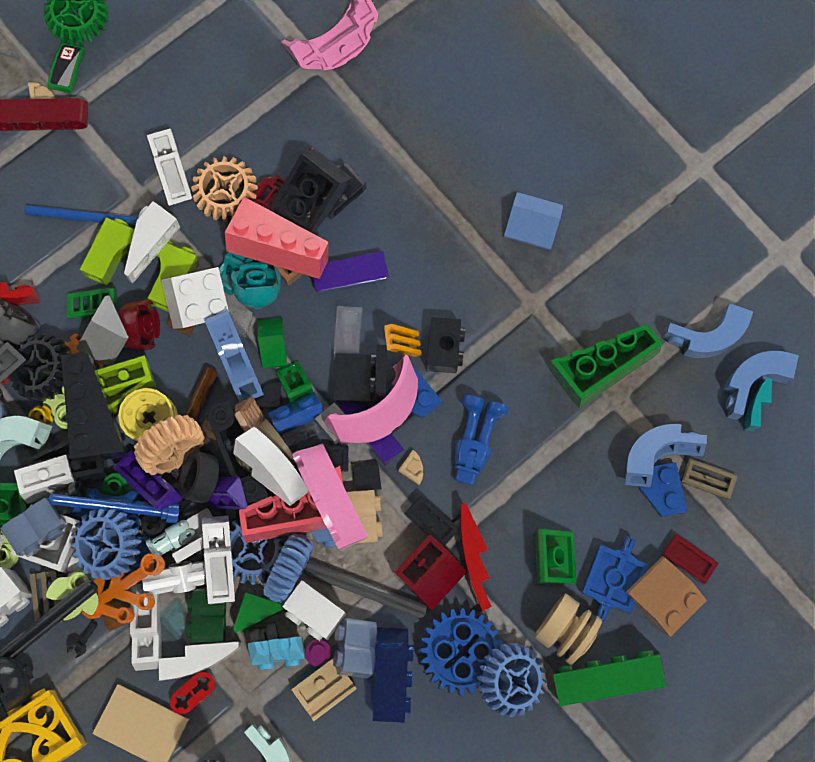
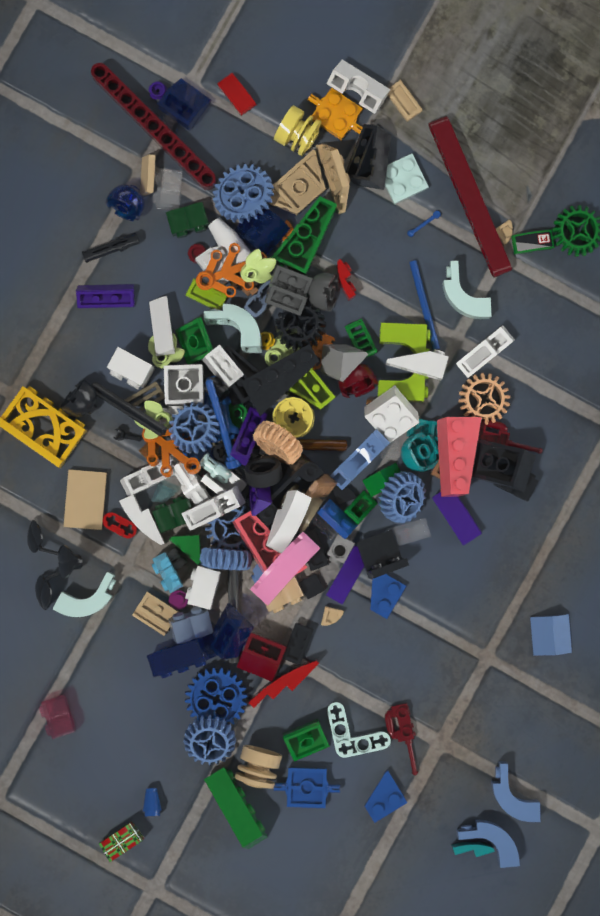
camera: 70 degrees right, 10 degrees up
(34, 527) = (186, 375): sand blue brick -> none
(96, 172) = (464, 304): none -> light aqua arch
(301, 323) = (398, 508): none -> medium blue gear
(383, 417) = (357, 584): bright pink windscreen -> none
(385, 599) = (230, 633): none -> clear blue slope
(402, 335) = (422, 580): light orange tile -> none
(445, 330) = (440, 601): black brick -> none
(472, 454) = (356, 654): blue piece -> none
(570, 506) = (346, 738): none -> light aqua beam
(588, 431) = (405, 730): none -> dark red piece
(597, 368) = (454, 722): green wedge -> none
(657, 444) = (411, 782): medium blue arch -> none
(666, 596) = (307, 827): medium nougat slope -> none
(689, 559) = (341, 835): dark red tile -> none
(706, 488) = (412, 828): dark tan tile -> none

